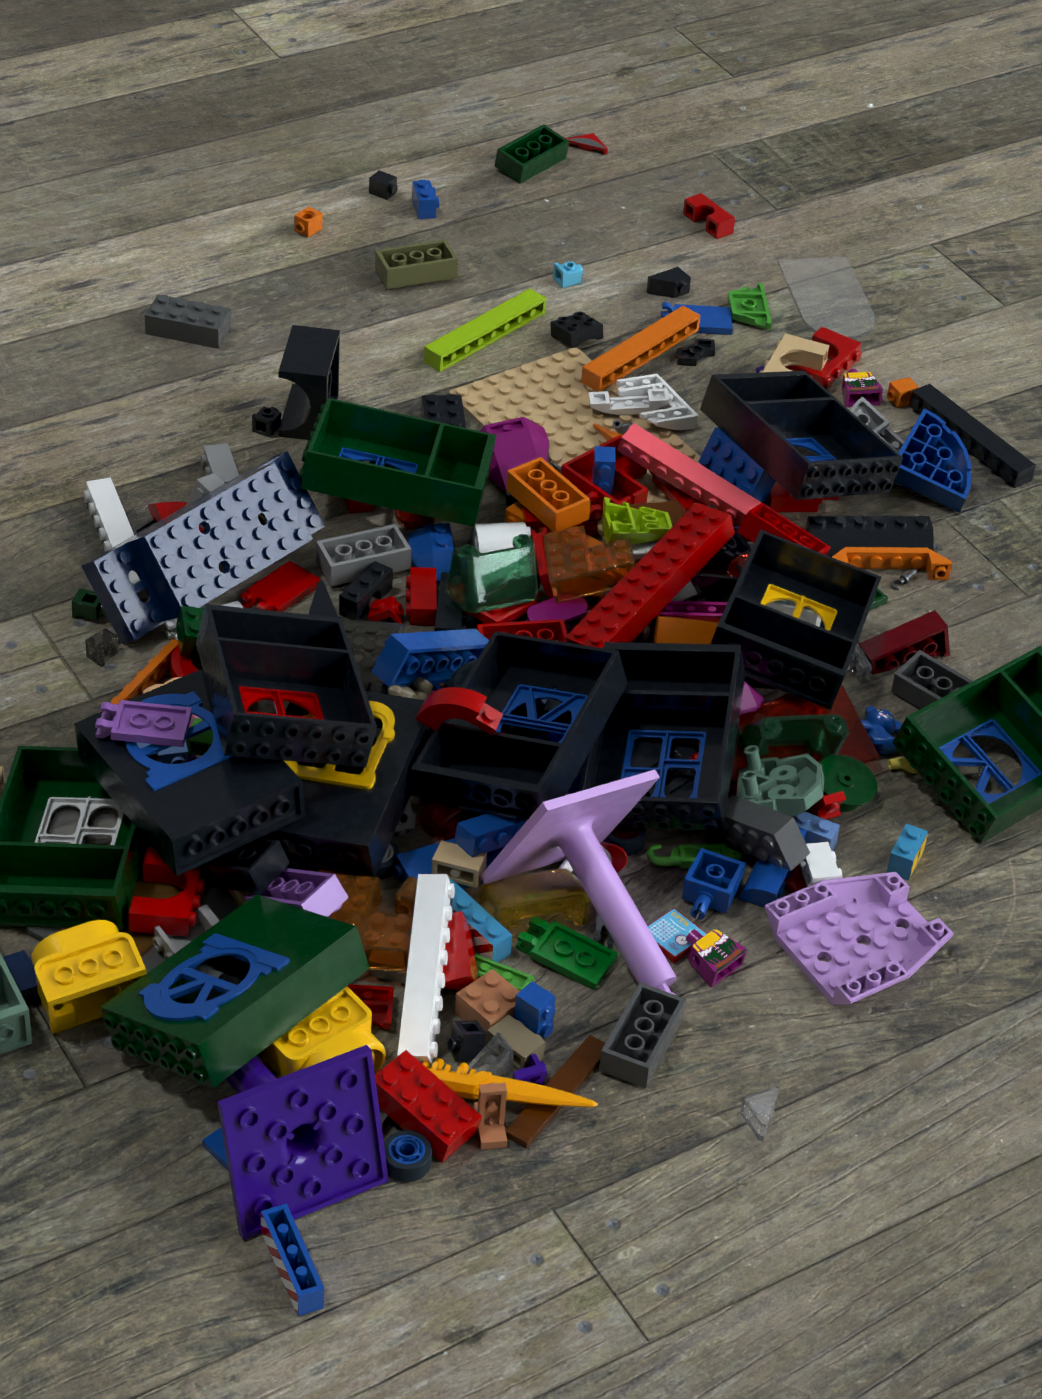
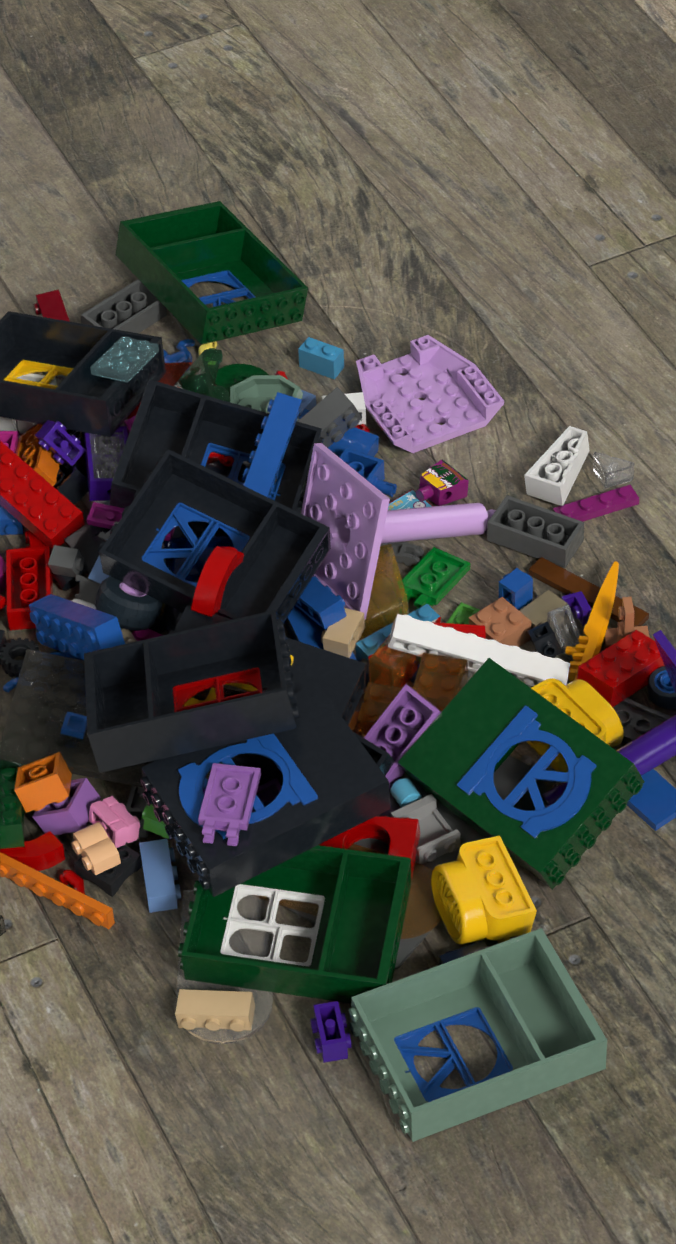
camera: 80 degrees left, 5 degrees up
(665, 756) = (272, 443): none -> blue brick
(696, 625) = (63, 446): none -> dark purple brick
(705, 1101) = (600, 504): none -> magenta plate
(753, 1057) = (558, 467): none -> white wedge
(792, 642) = (124, 359): none -> clear light blue plate

